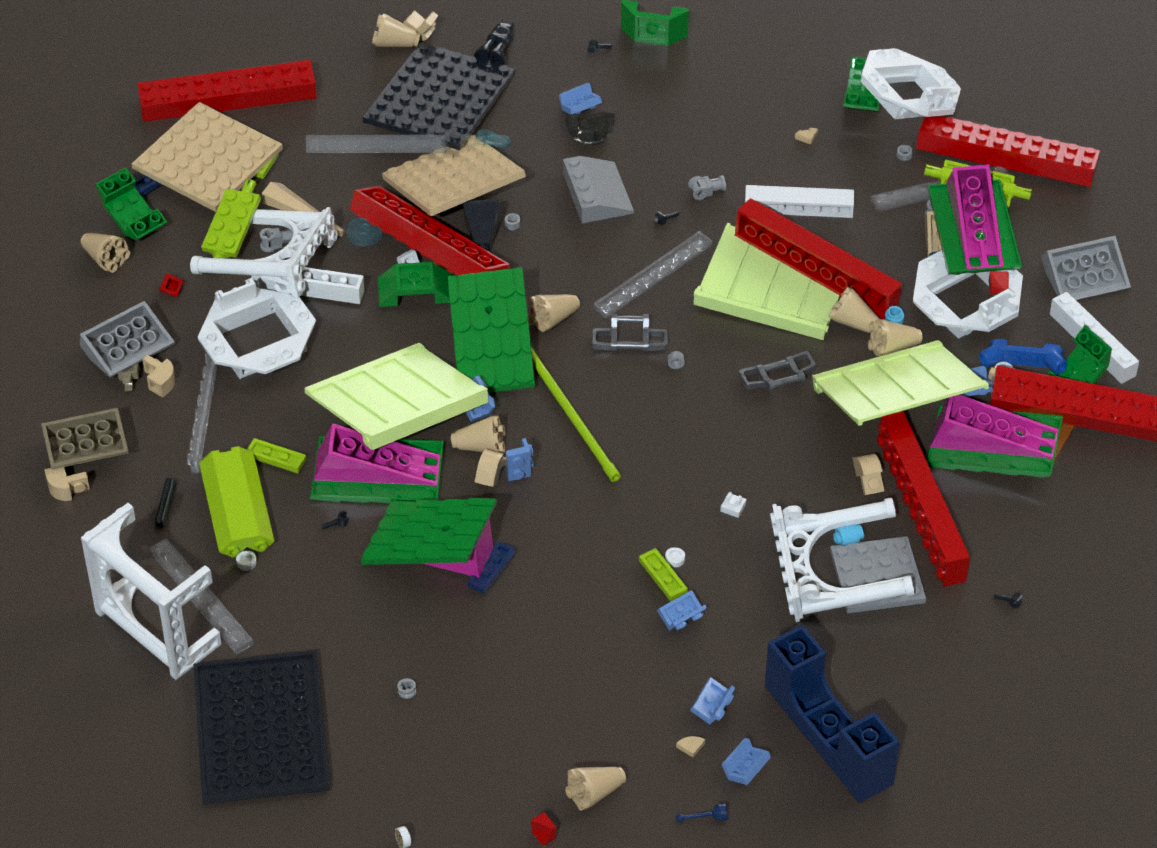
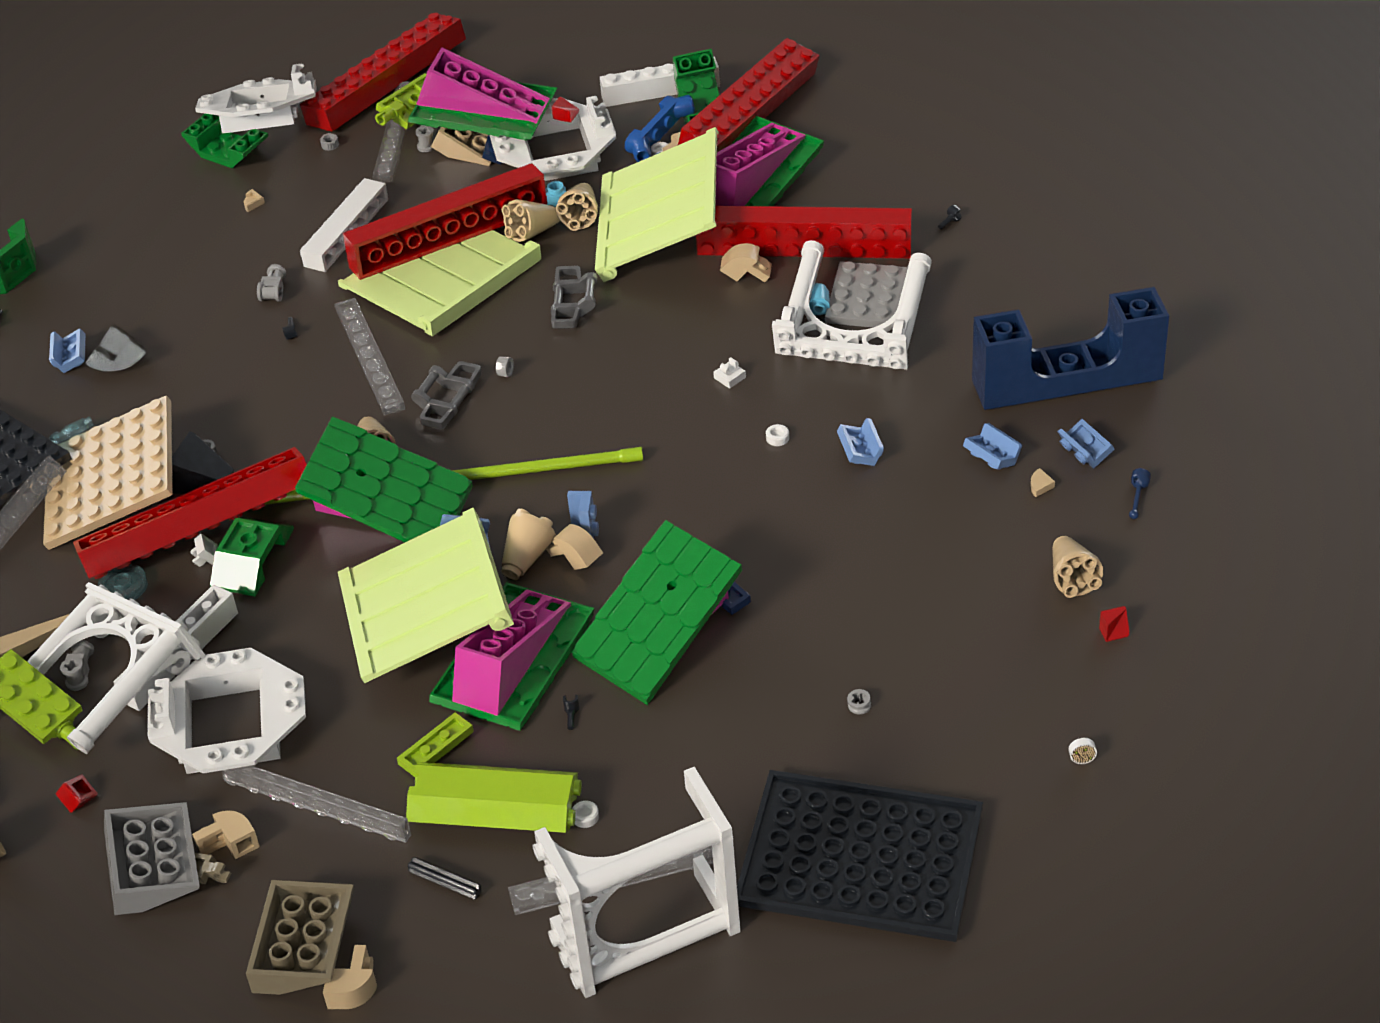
camera: 65 degrees left, 5 degrees down
(596, 188) = (209, 372): light grey slope -> none
(663, 574) = (800, 447): lime plate -> none
(1086, 268) = (571, 65): light grey slope -> none

